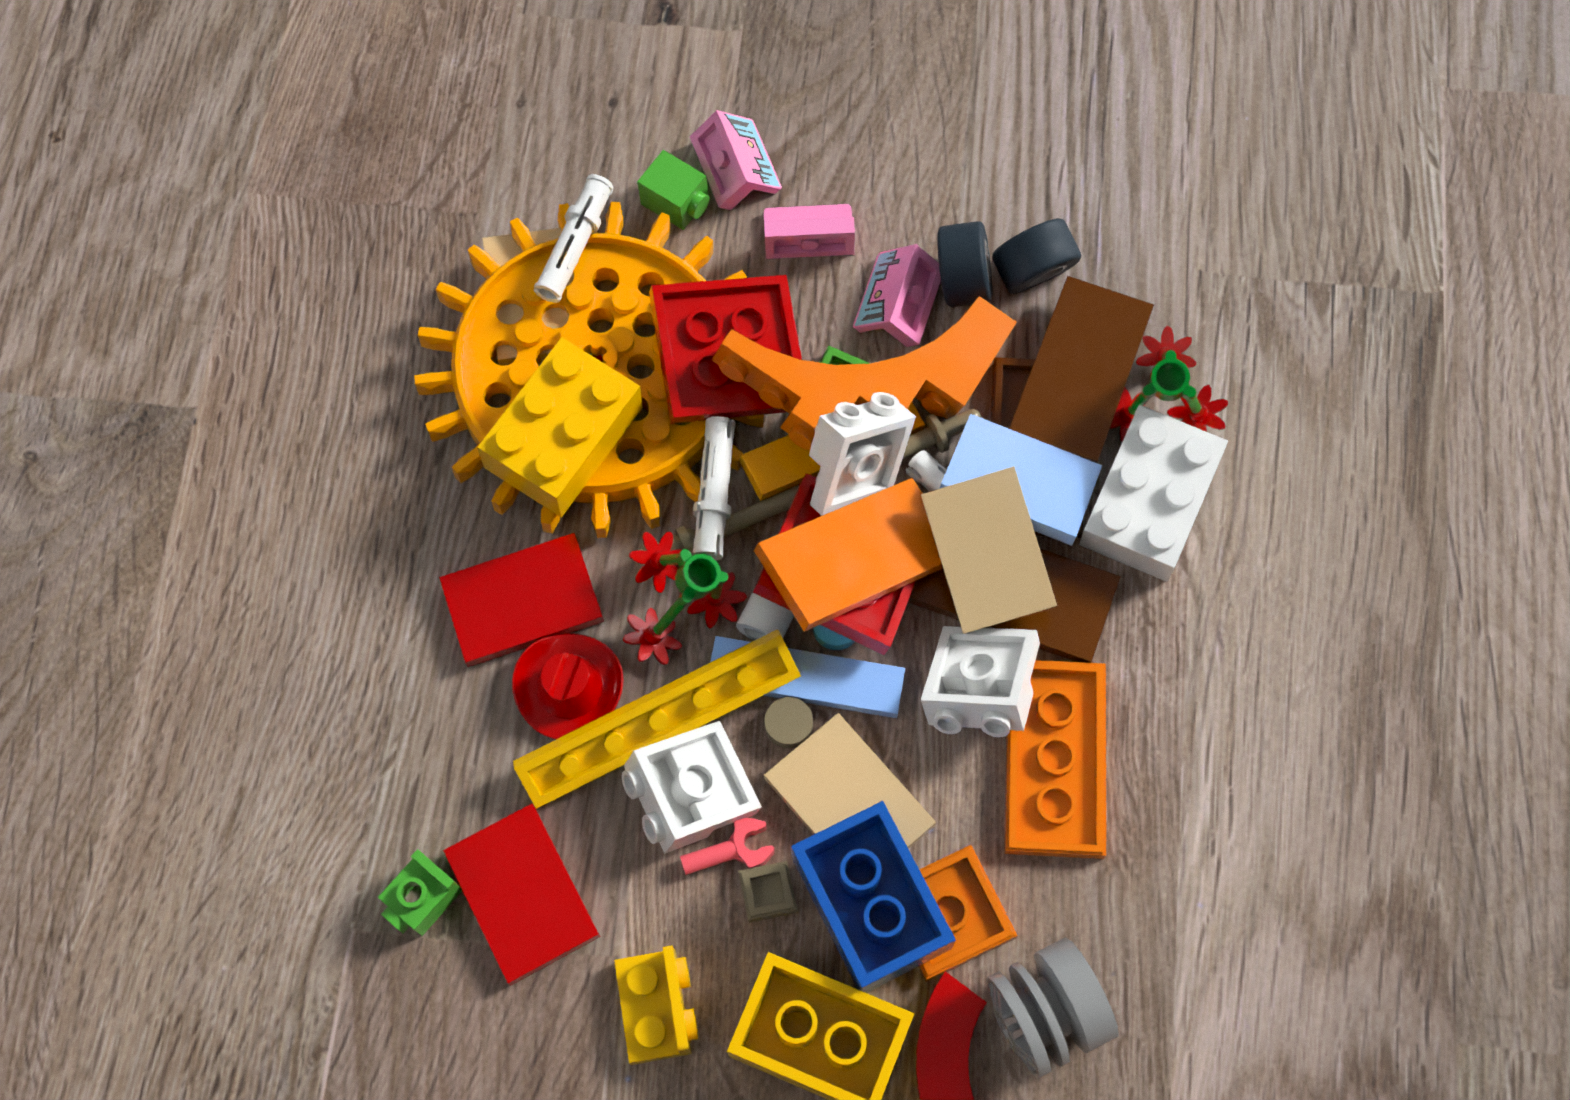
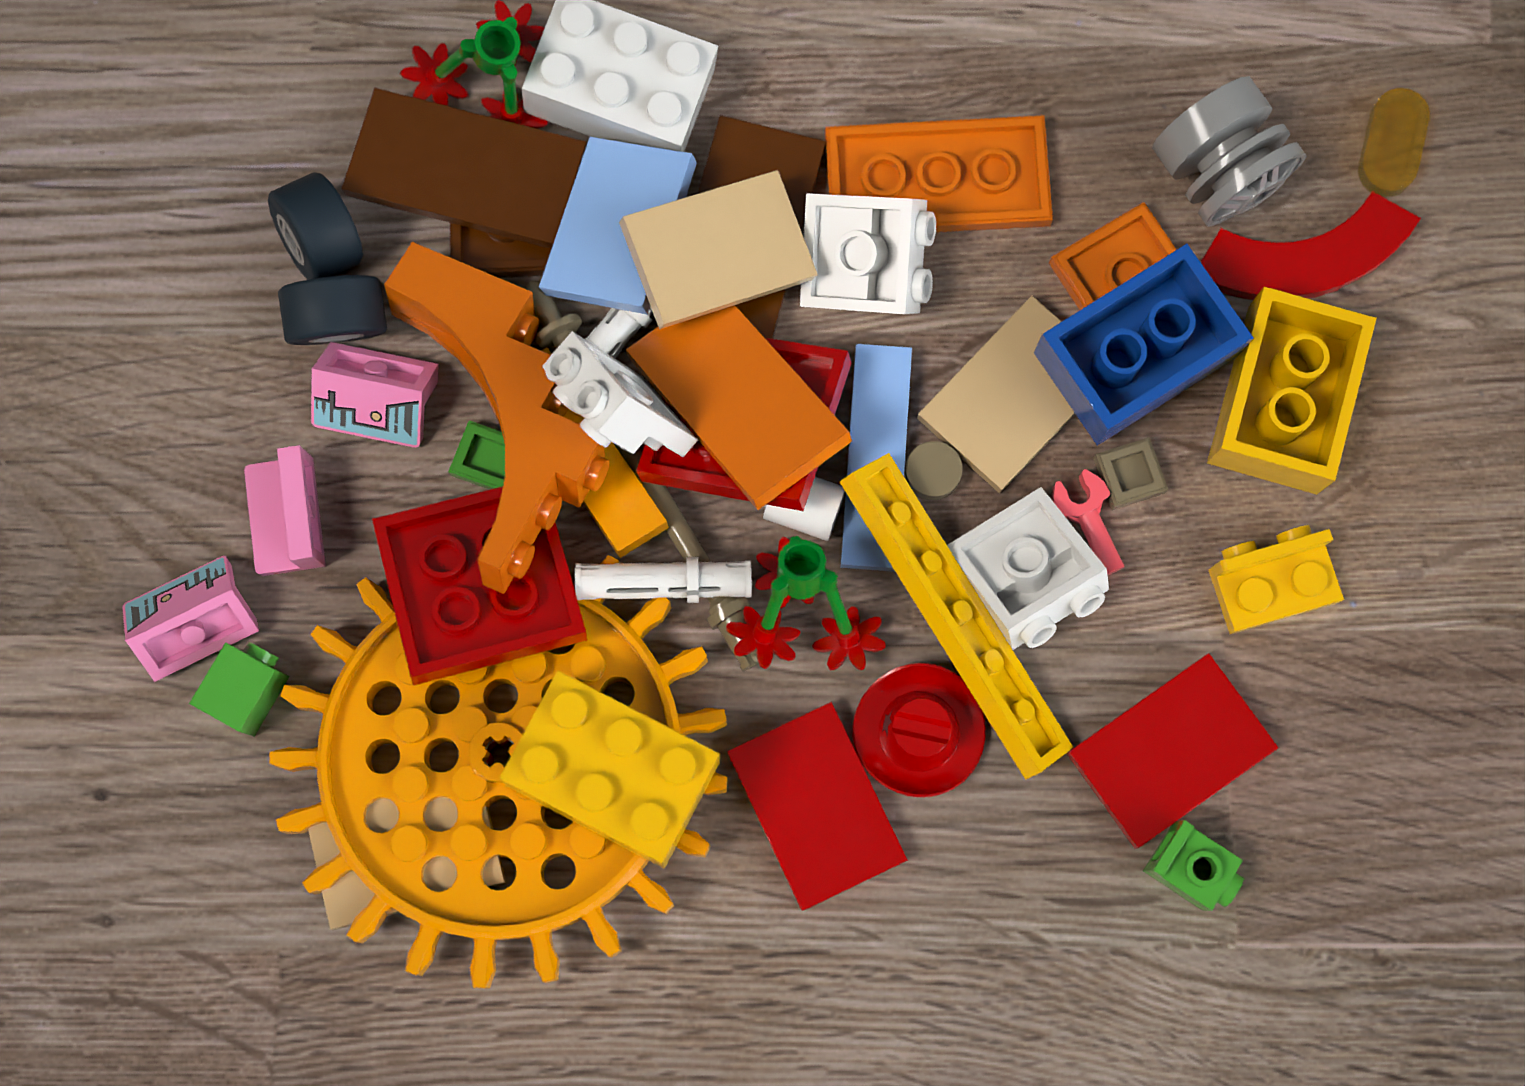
camera: 95 degrees left, 10 degrees up
(581, 222) = (271, 781): white pin -> none

